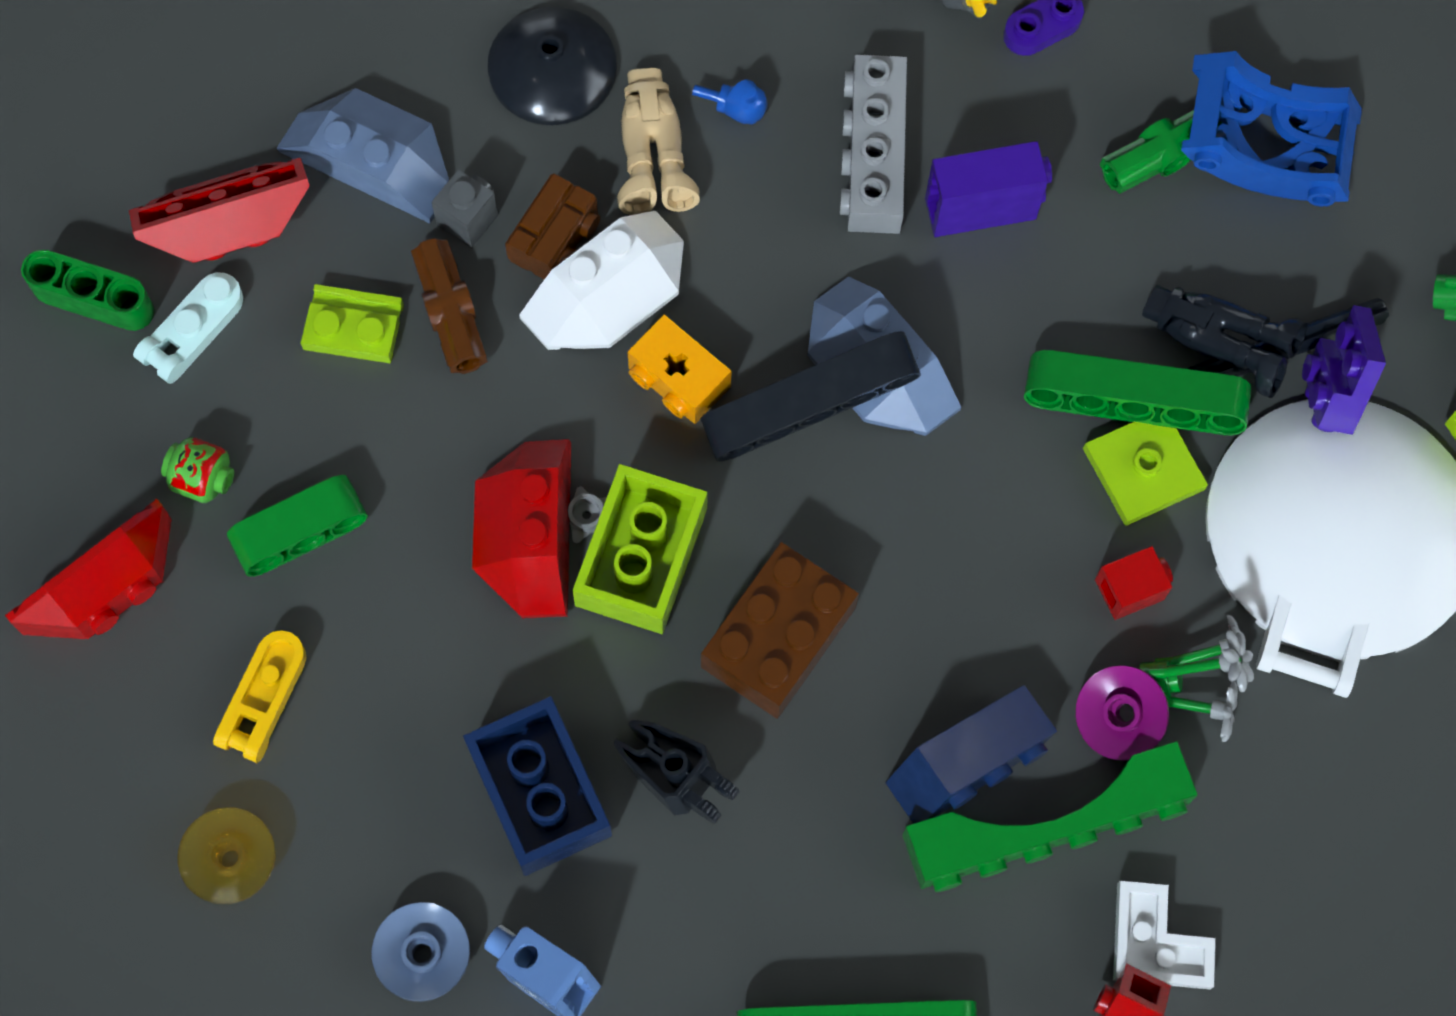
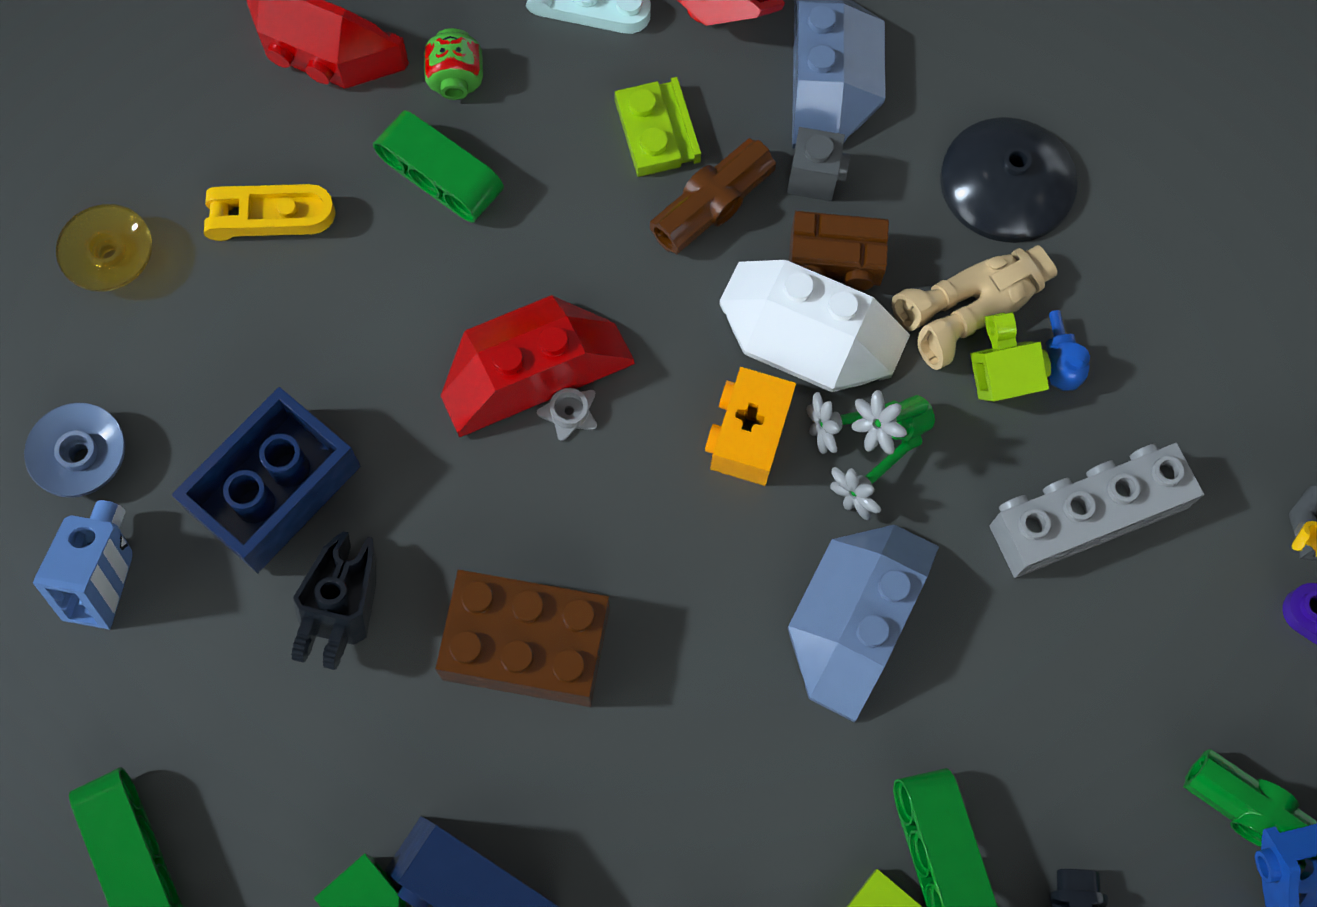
camera: 65 degrees right, 0 degrees up
(640, 549) = (545, 469): lime brick -> none
(727, 145) = (1009, 366): none -> lime brick
(738, 258) = (882, 422): none -> light grey plant
(810, 396) = (781, 561): black beam -> none
(987, 188) = (1104, 640): dark purple brick -> none

